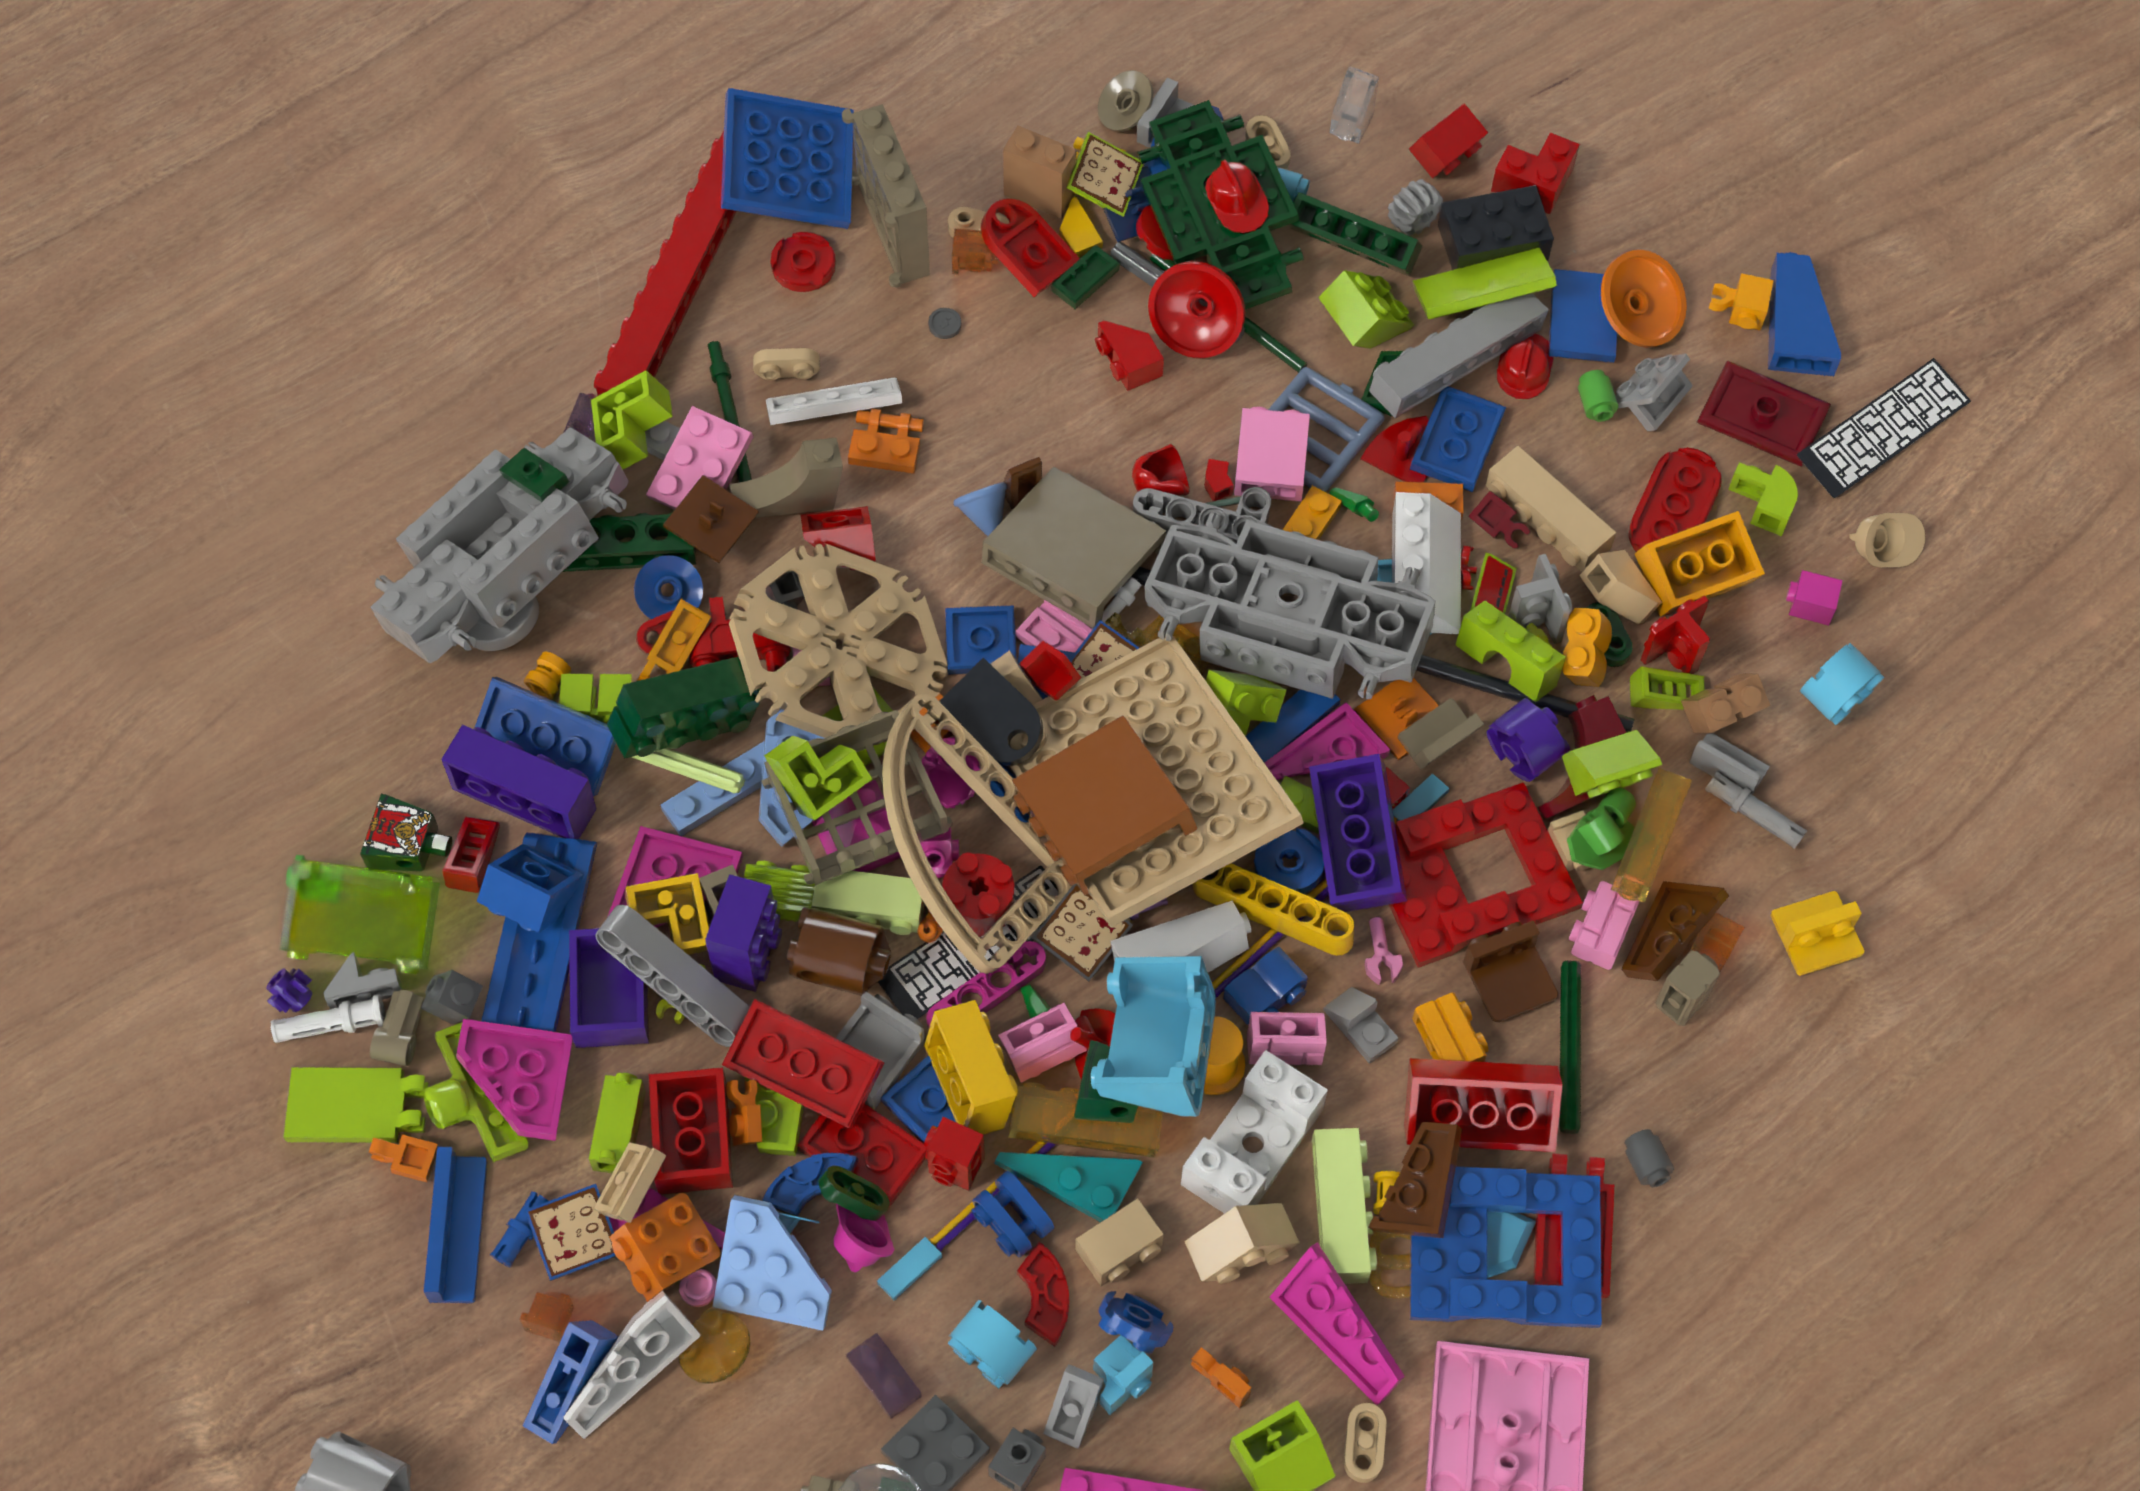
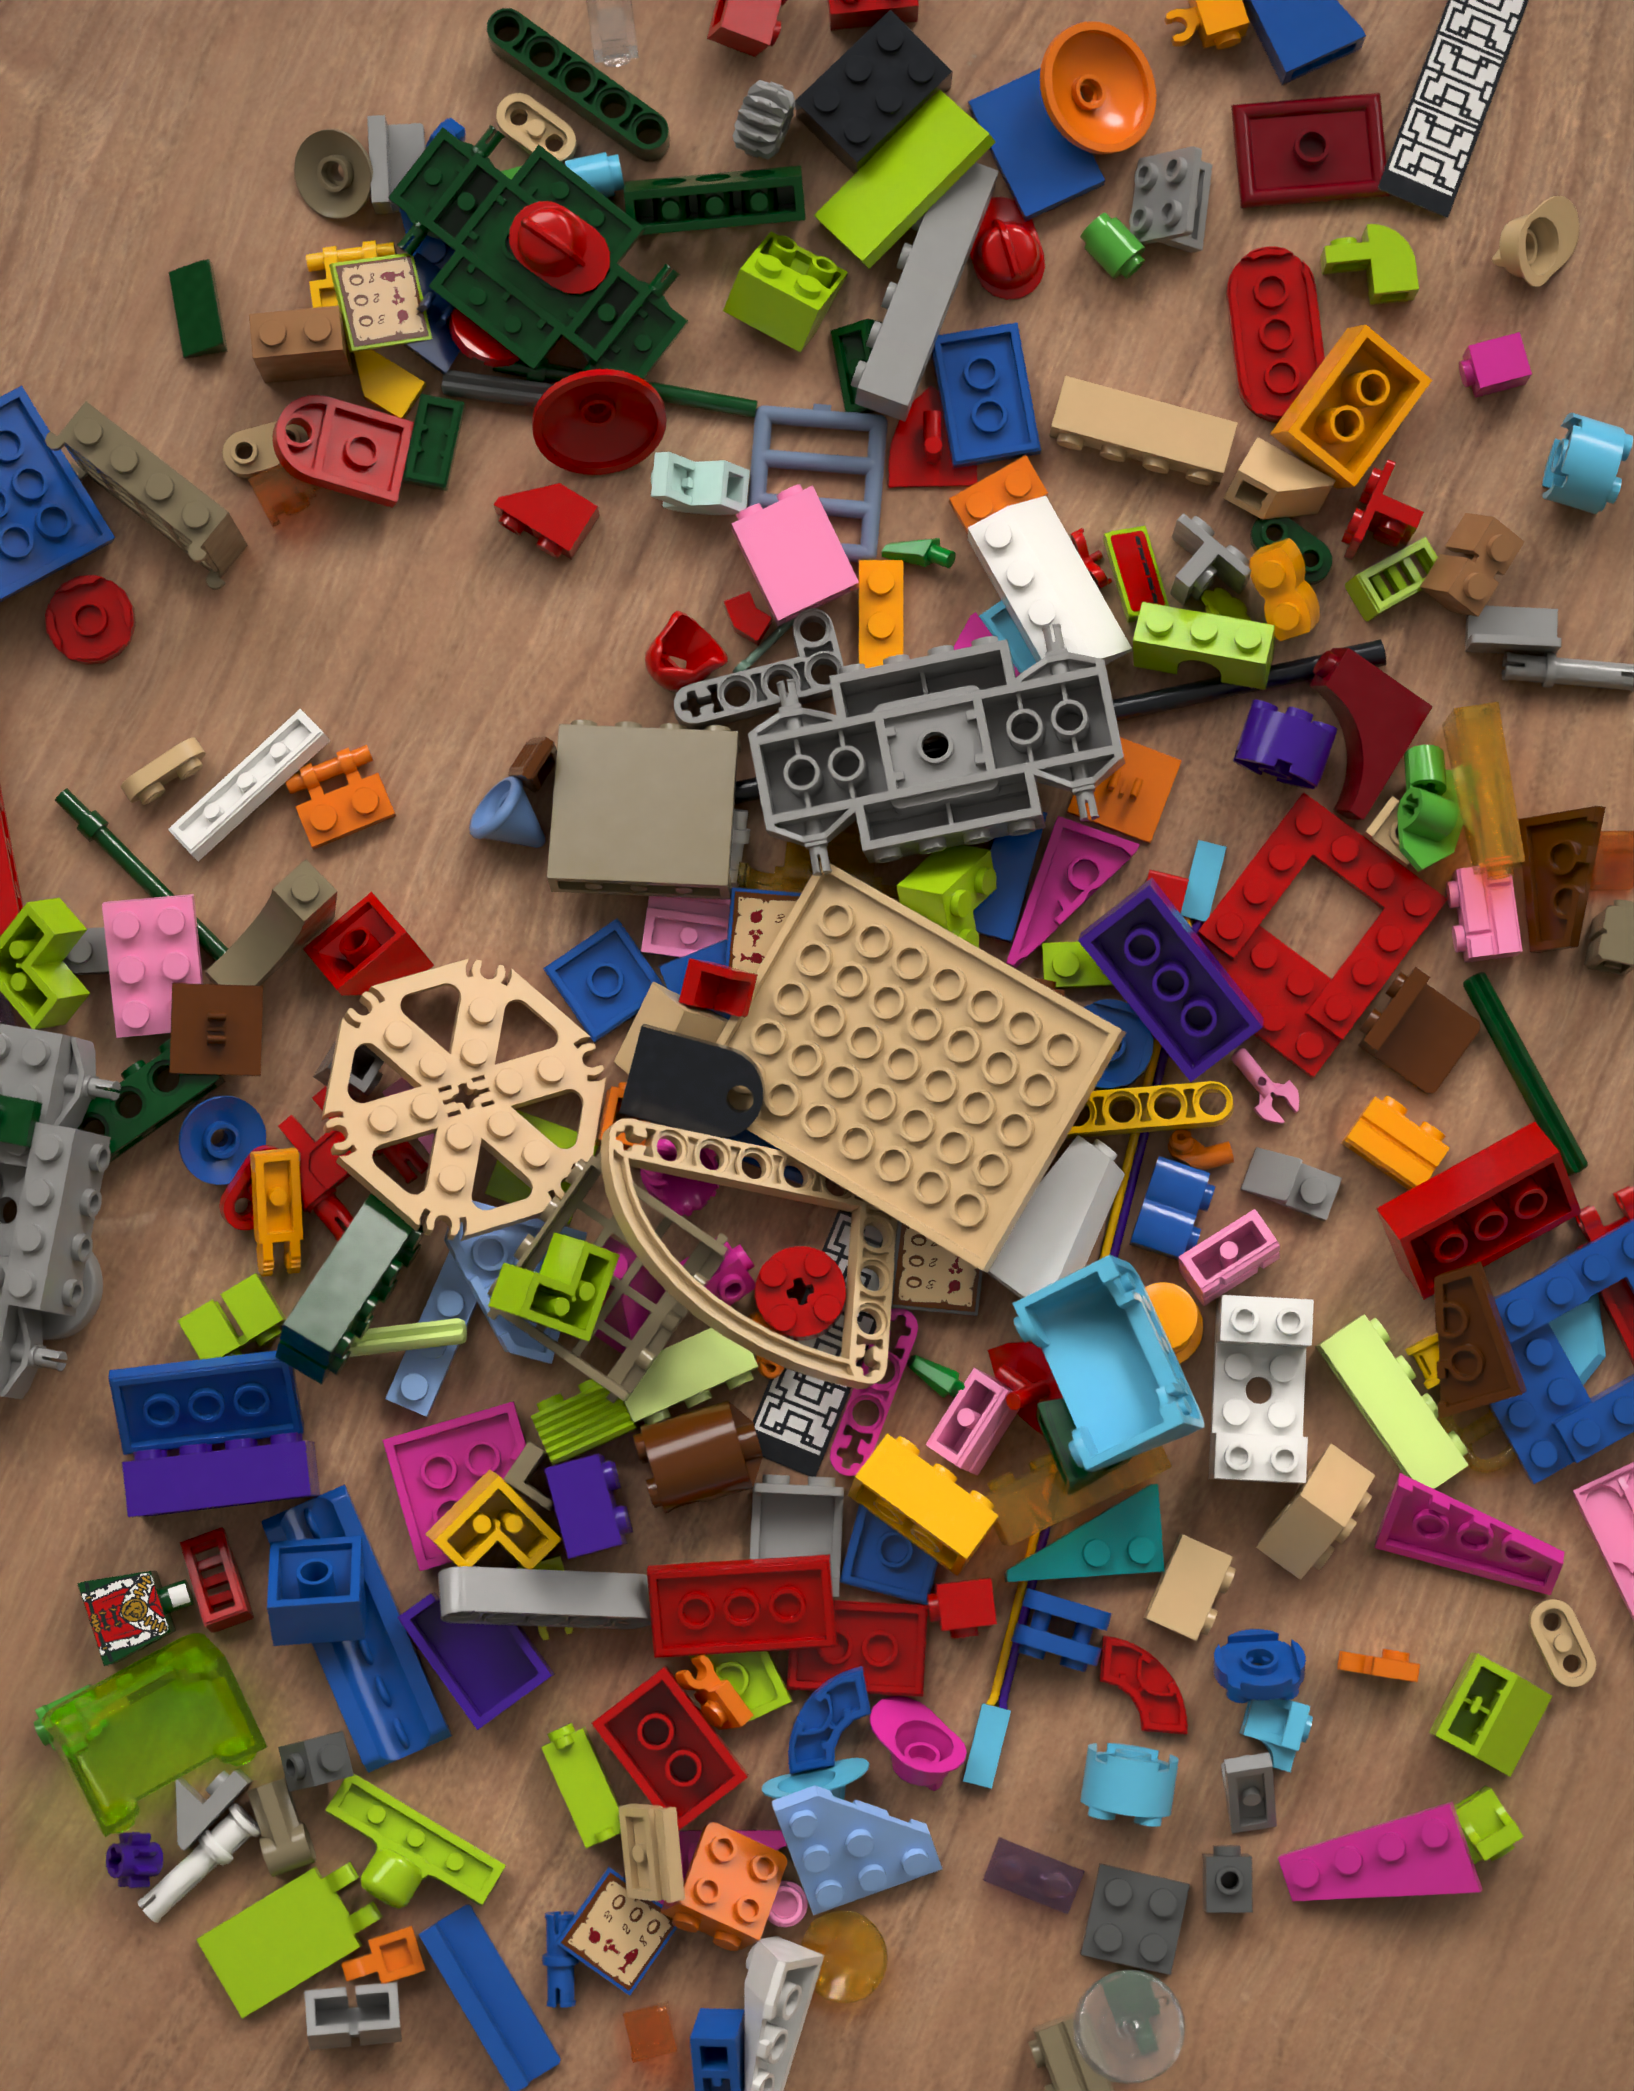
camera: 30 degrees left, 20 degrees up
(339, 1171) = (334, 2023): none -> light grey piece
(519, 1072) = (446, 1799): dark pink plate -> none
(547, 675) = (157, 1336): light orange wheel -> none
(853, 1193) = (880, 1715): dark green plate -> none
(944, 323) = (307, 599): dark grey piece -> none
(991, 132) = (197, 309): none -> dark green slope
(1100, 801) = (887, 1134): dark orange panel -> none
(1233, 385) = (699, 486): none -> light aqua brick
(1301, 957) = (1194, 1154): none -> orange arm
(1318, 149) = (569, 66): none -> dark green beam
(1438, 732) = (1179, 789): dark tan panel -> none
(1495, 517) = (1087, 475): dark red plate -> none
(1610, 764) = (1400, 734): lime slope -> none

